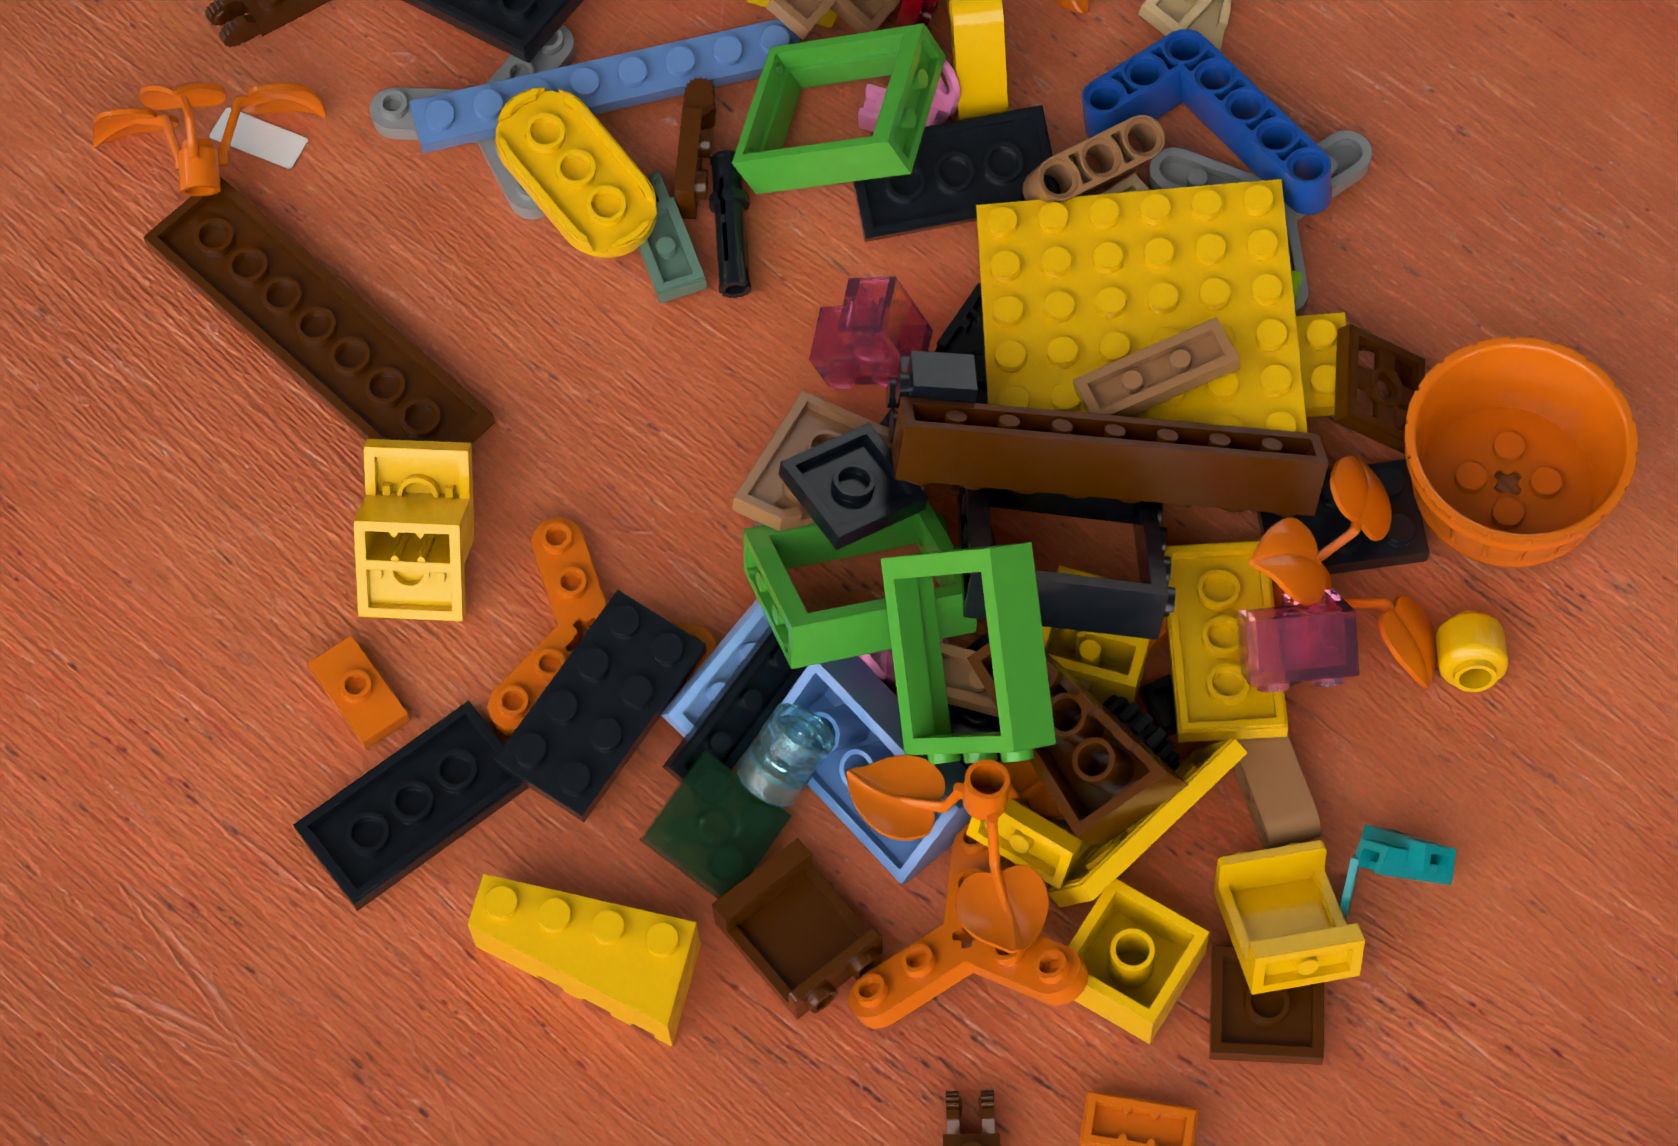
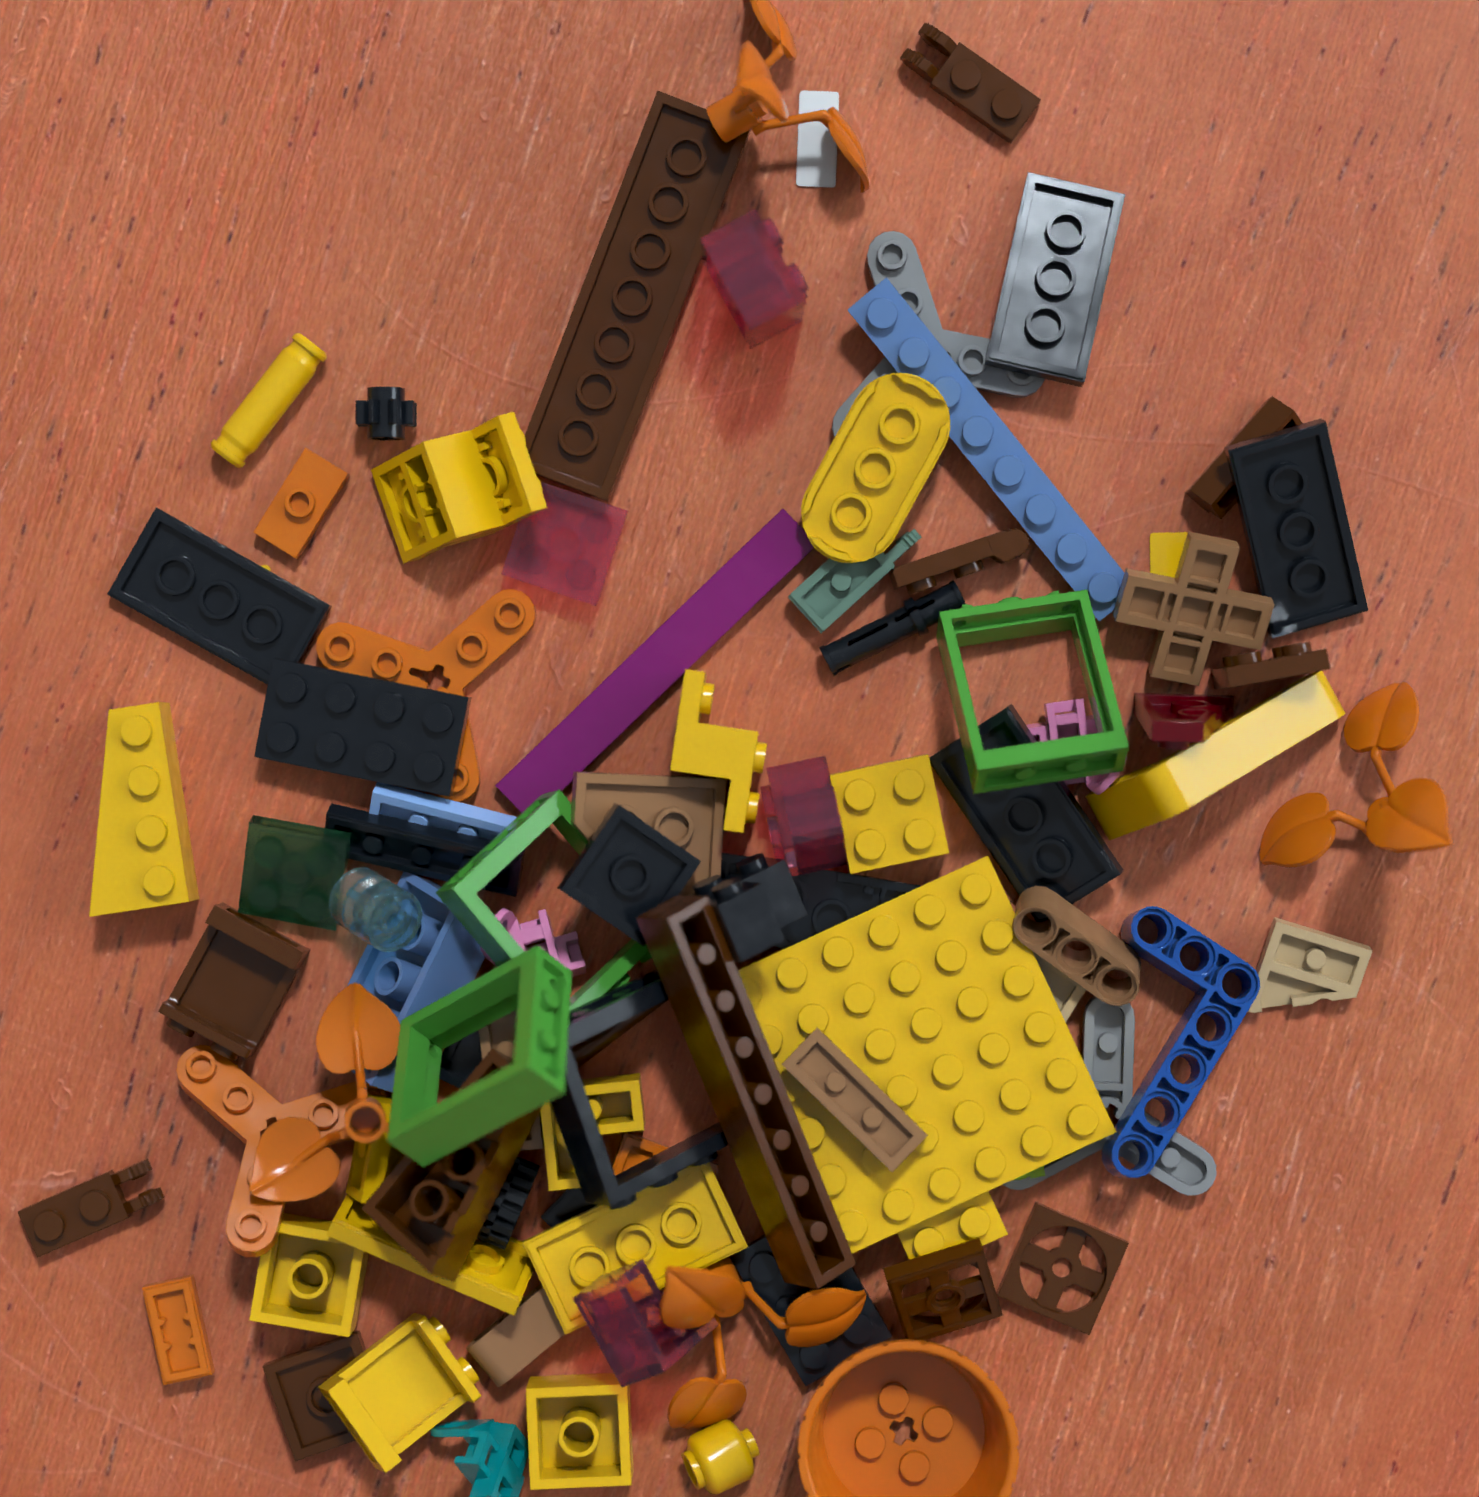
camera: 60 degrees right, 25 degrees up
(244, 680) = (268, 400): none -> yellow axle
(312, 574) = (385, 413): none -> black gear
(353, 197) = (753, 277): none -> clear pink brick
(520, 468) = (566, 545): none -> clear pink plate
(668, 436) = (659, 661): none -> magenta tile
(759, 397) = (717, 750): none -> yellow bracket
(918, 255) = (889, 813): none -> yellow brick
(1394, 763) = (579, 1431): none -> yellow brick
(1426, 271) = (1070, 1247): none -> reddish brown piece

